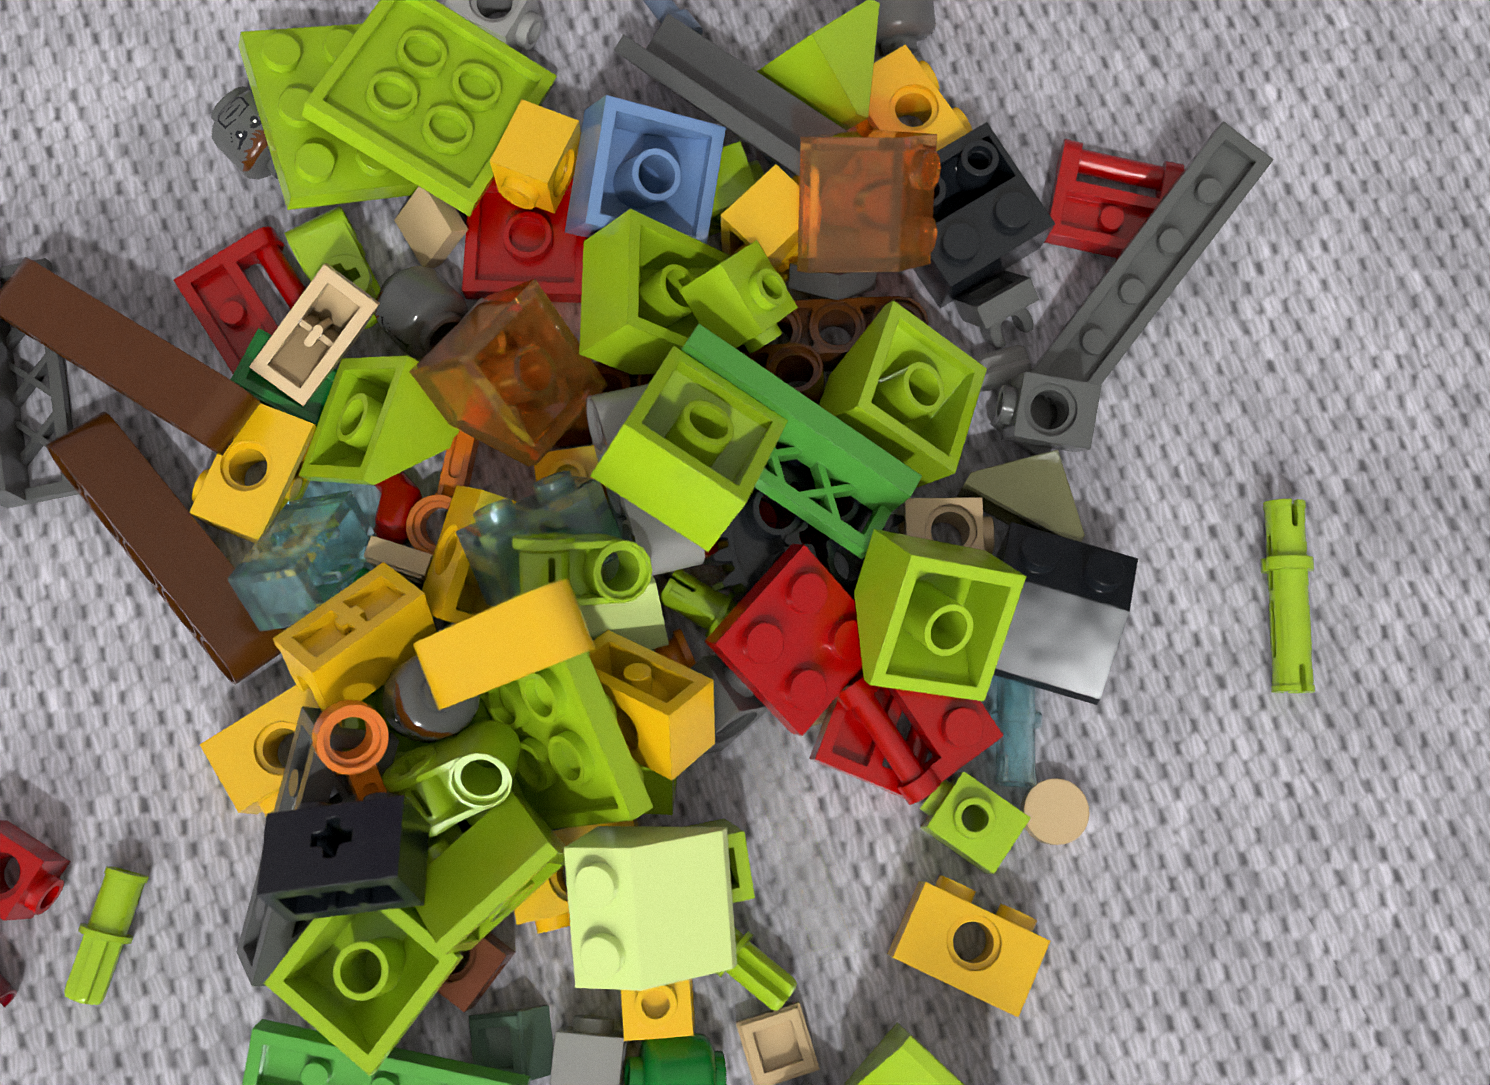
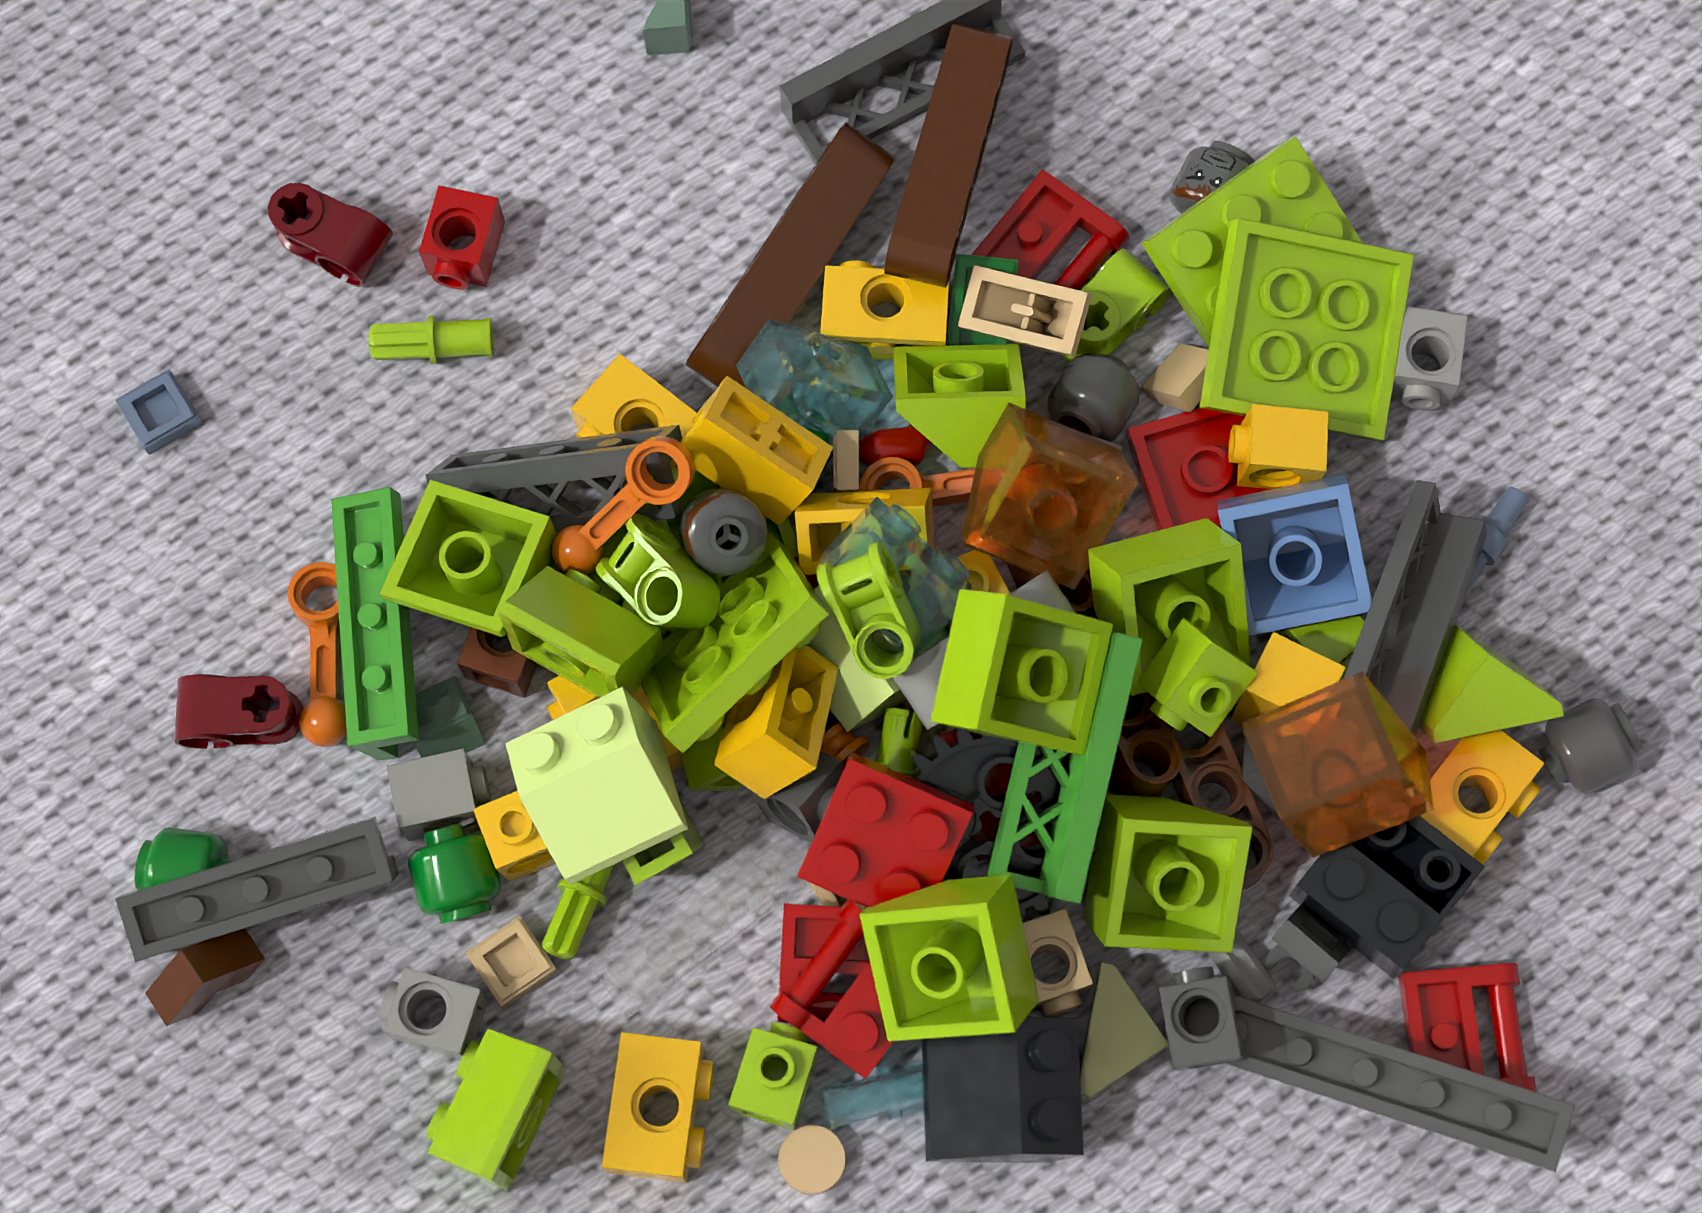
camera: 75 degrees right, 5 degrees down
(344, 858) = (555, 504): black brick -> none
(504, 644) = (778, 565): yellow beam -> none

